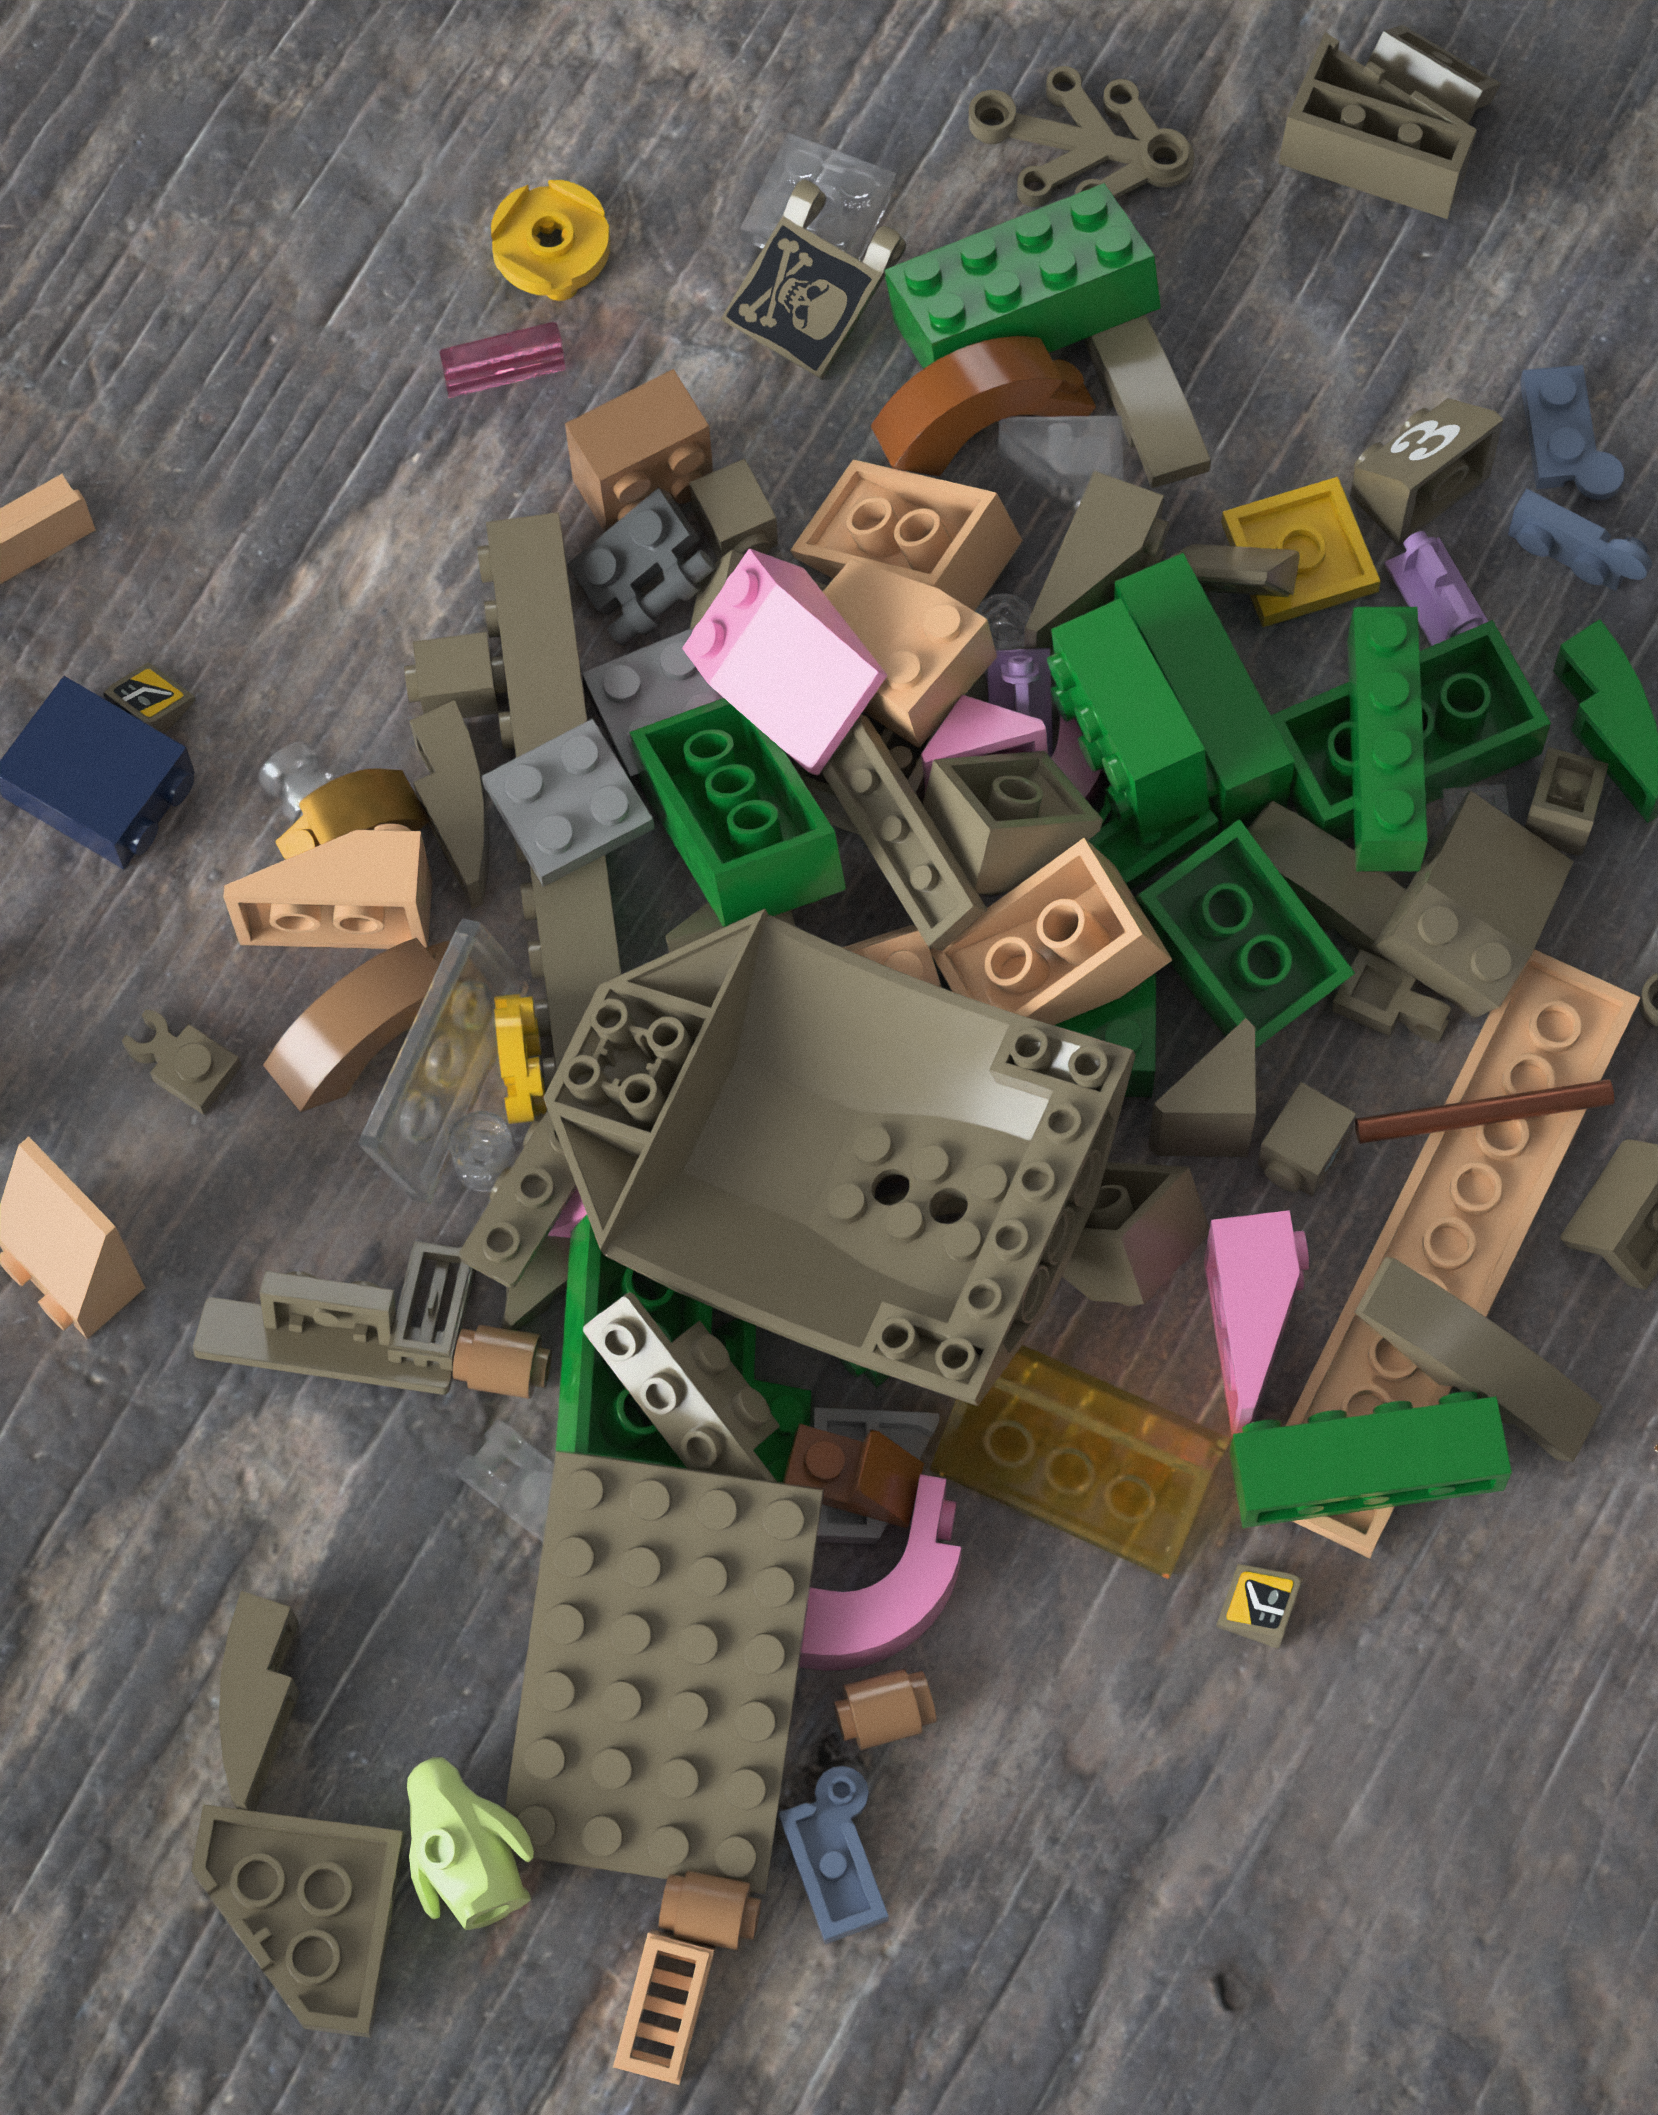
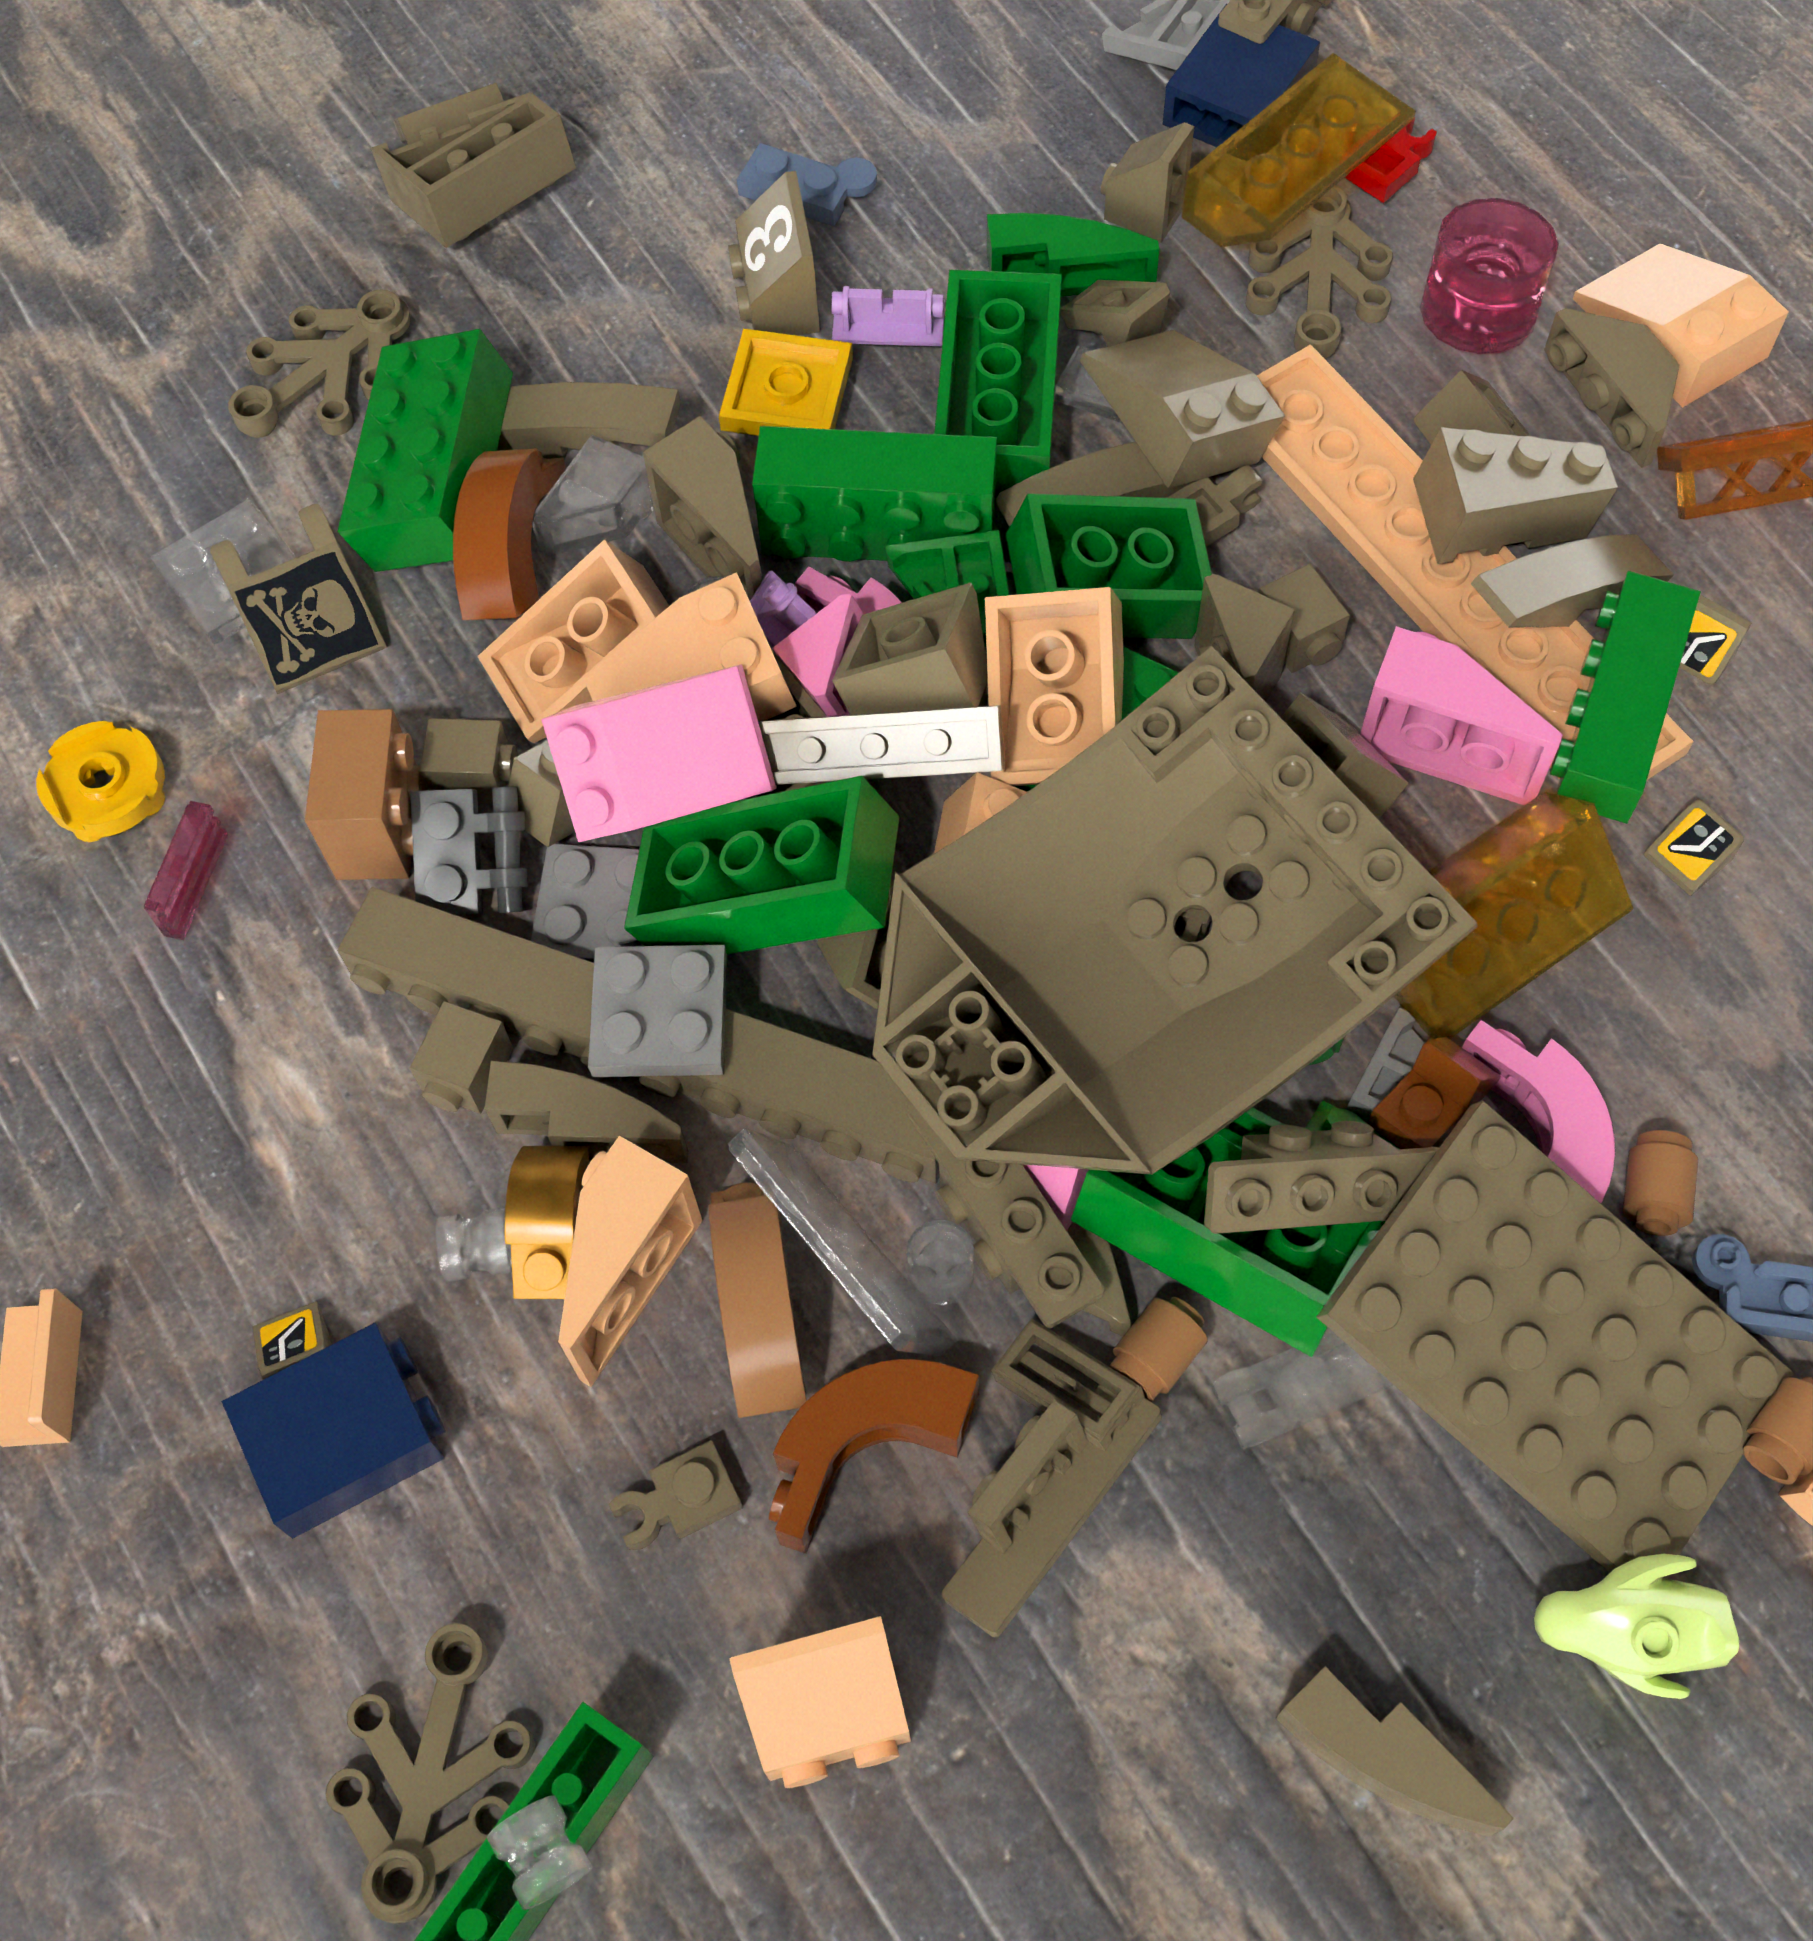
camera: 60 degrees left, 5 degrees down
(306, 1905) = (1630, 1816): dark tan plate -> none
(310, 1149) = (862, 1408): none -> dark orange arch
(517, 1041) = (877, 1178): yellow plate -> none
(1128, 719) = (885, 525): green brick -> none
(1243, 569) = (792, 407): dark tan slope -> none
(1387, 739) = (1018, 367): green brick -> none
(1484, 1111) = (1353, 482): copper bar -> none
(1505, 1522) = (1712, 640): none -> slope
(1549, 1257) = (1508, 490): none -> dark tan wedge
(1576, 542) = (906, 208): sand blue hinge -> none

